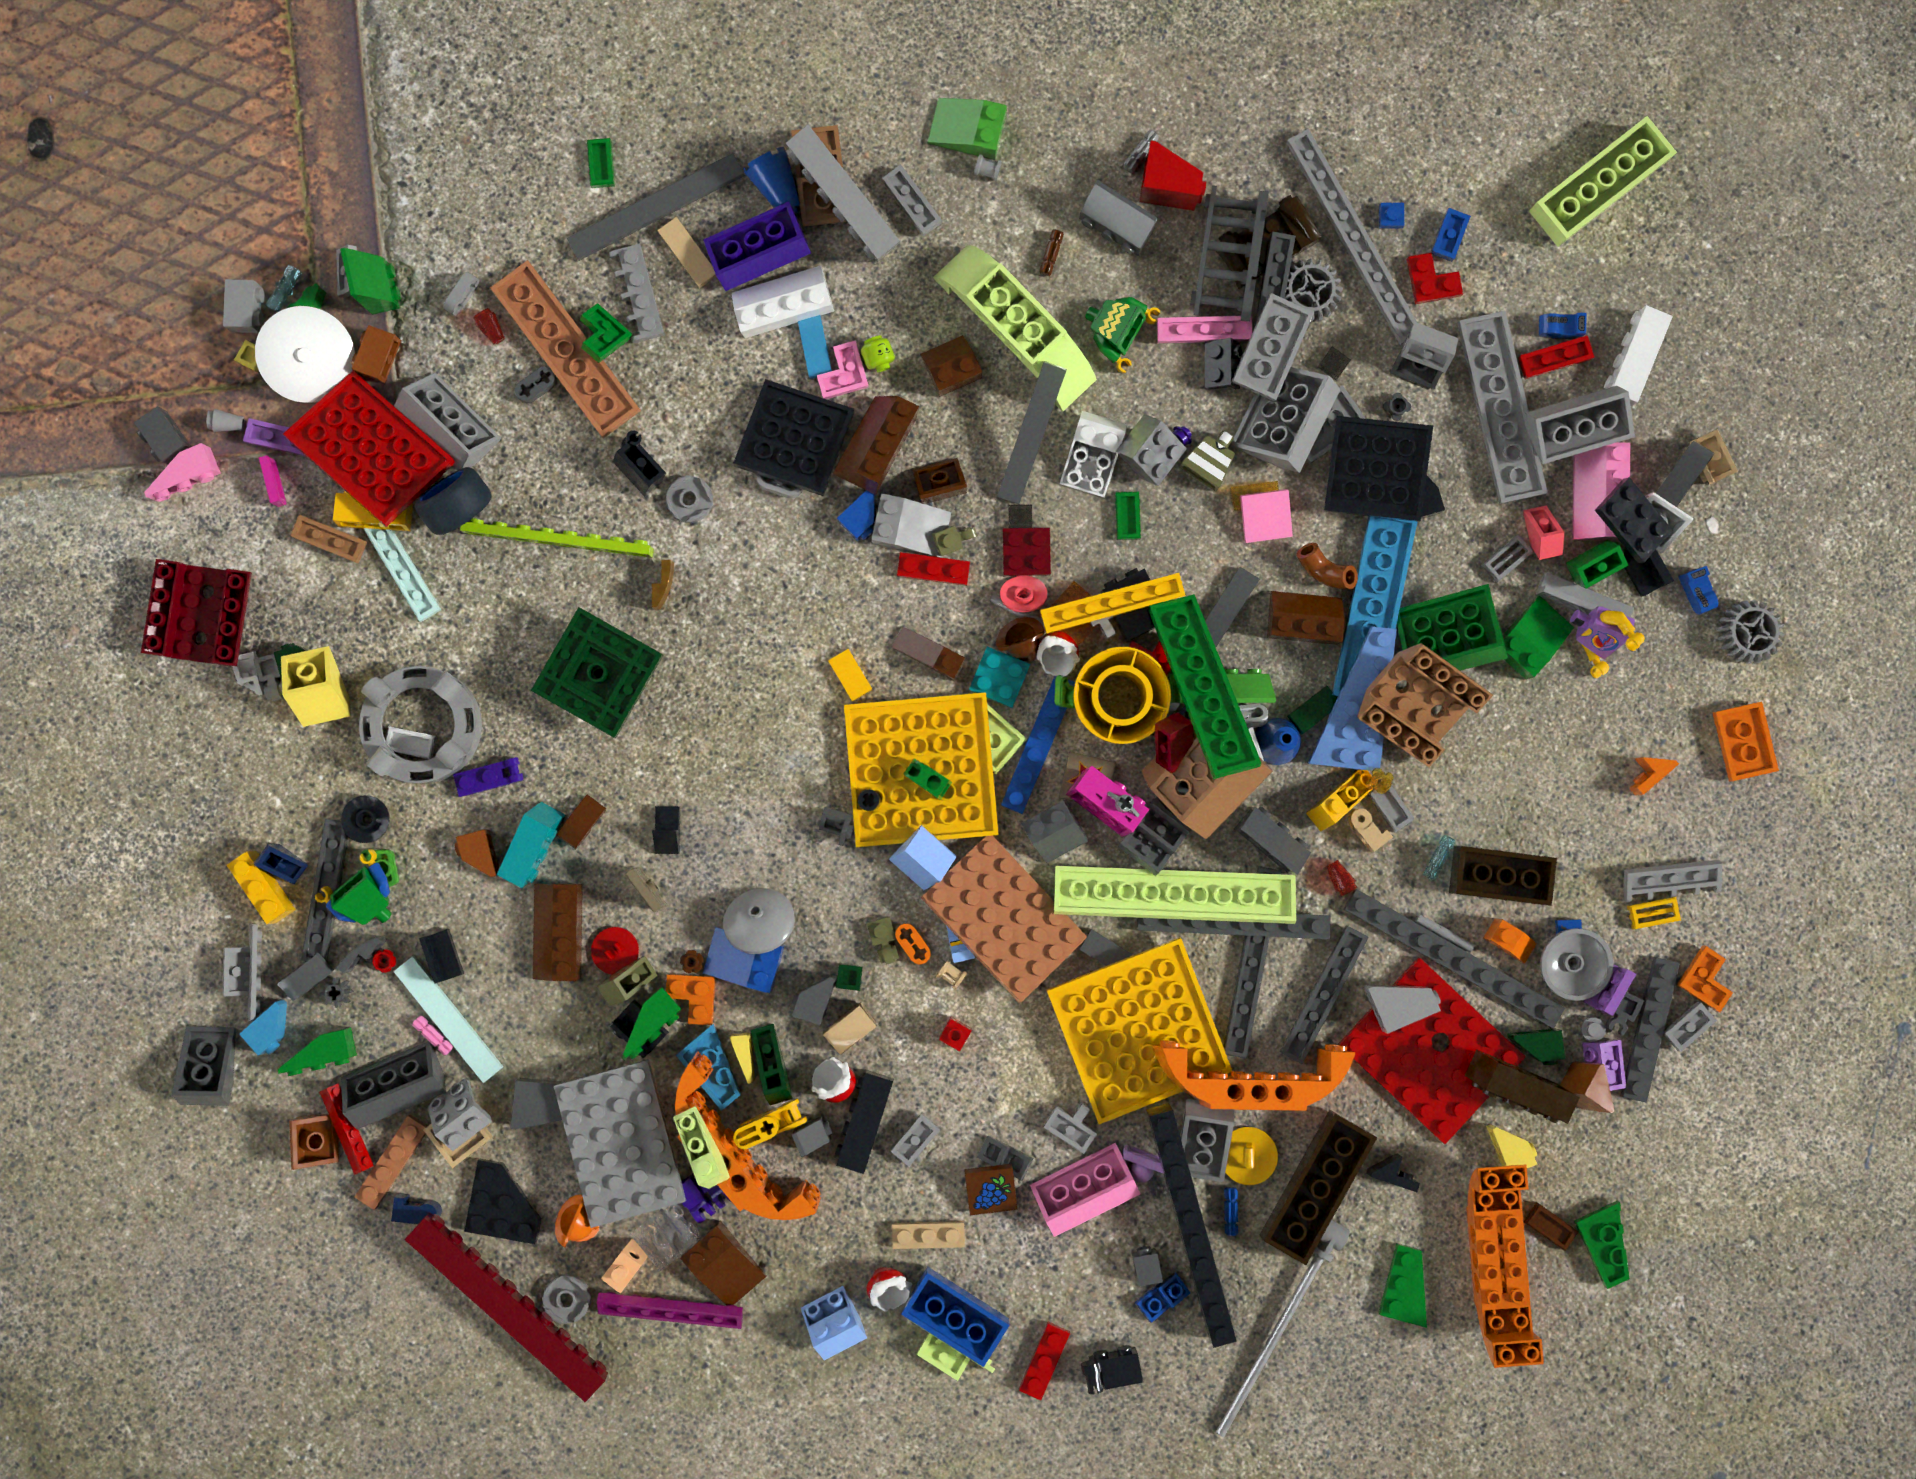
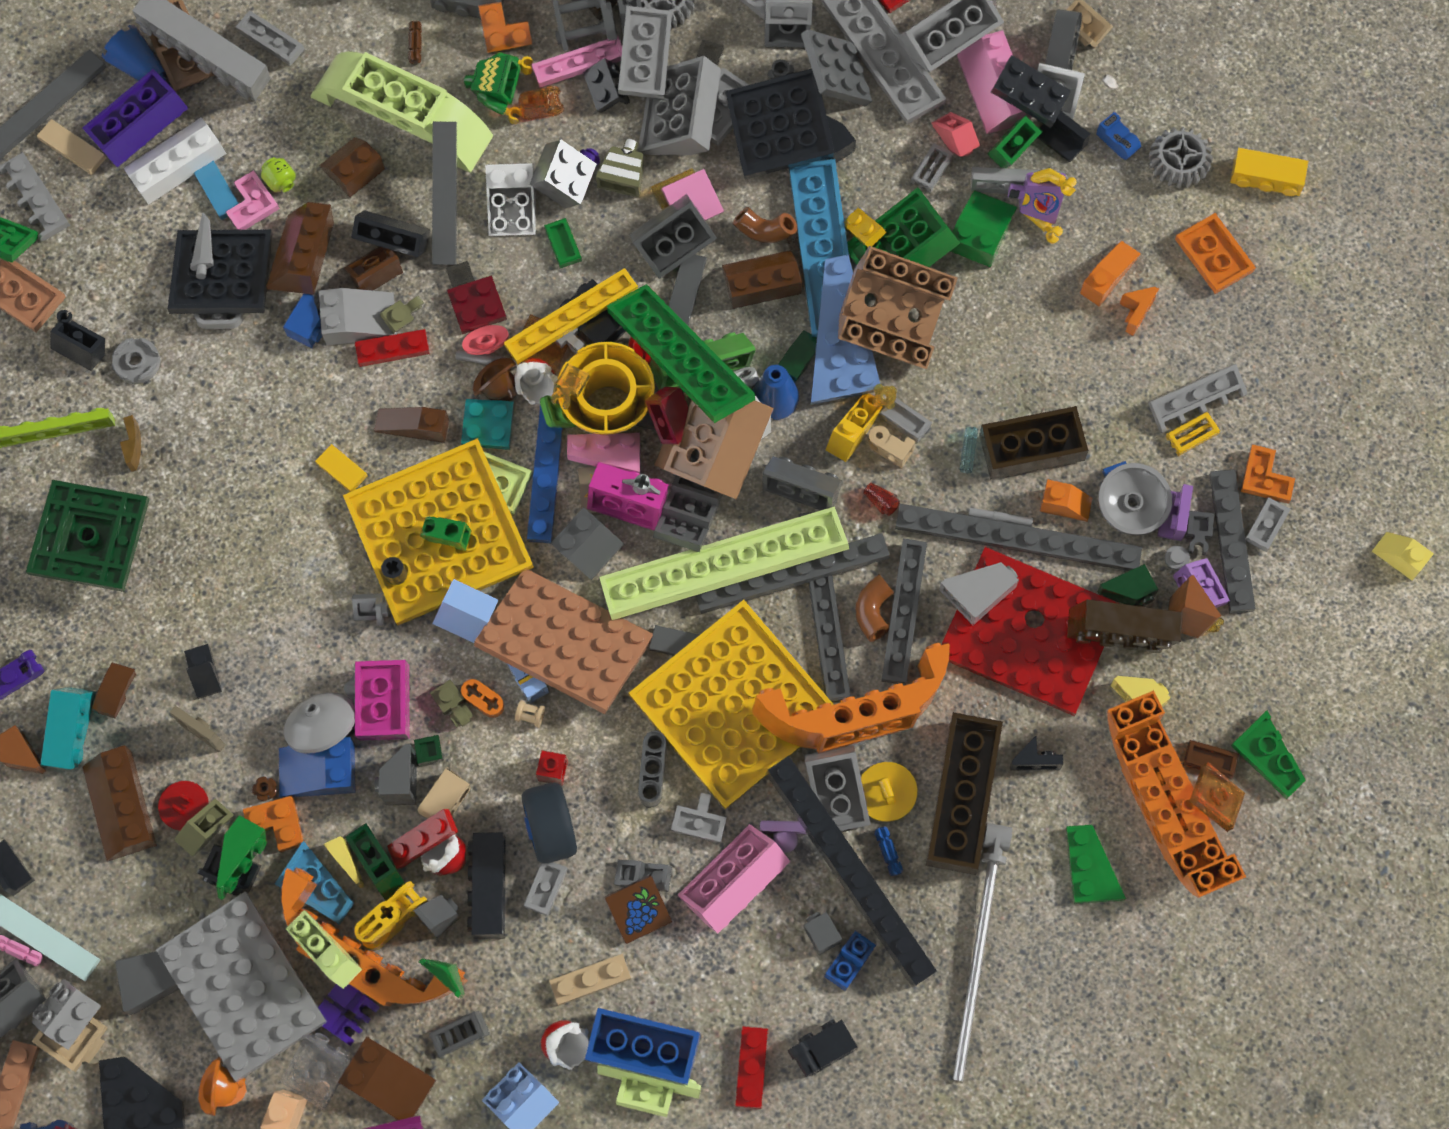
camera: 15 degrees left, 15 degrees down
(783, 412) = (202, 254): none -> light grey bar
(803, 1207) = (446, 973): none -> green slope
(816, 1234) = (480, 1026): none -> dark grey slope
(819, 1062) = (422, 838): none -> plate
(820, 917) = (380, 699): none -> dark pink piece
(937, 1091) = (549, 823): none -> black wheel
(967, 454) = (390, 233): none -> black brick
(1045, 1077) = (649, 757): none -> dark grey beam
(1091, 683) = (570, 383): none -> clear yellow plate
(1110, 755) = (616, 450): none -> bright pink wing
(1137, 275) = (502, 36): none -> orange plate
(1158, 362) = (542, 103): none -> clear orange piece
(1235, 549) = (672, 236): none -> dark grey slope
(1292, 980) = (868, 608): none -> dark orange cylinder
(1420, 603) = (864, 227): none -> yellow plate
(1453, 427) = (836, 67): none -> dark grey plate
(1544, 1269) = (1217, 797): none -> clear orange tile
(1637, 726) = (1109, 273): none -> orange slope
(1803, 1099) = (1403, 554): none -> light yellow slope
(1829, 677) = (1269, 172): none -> yellow brick

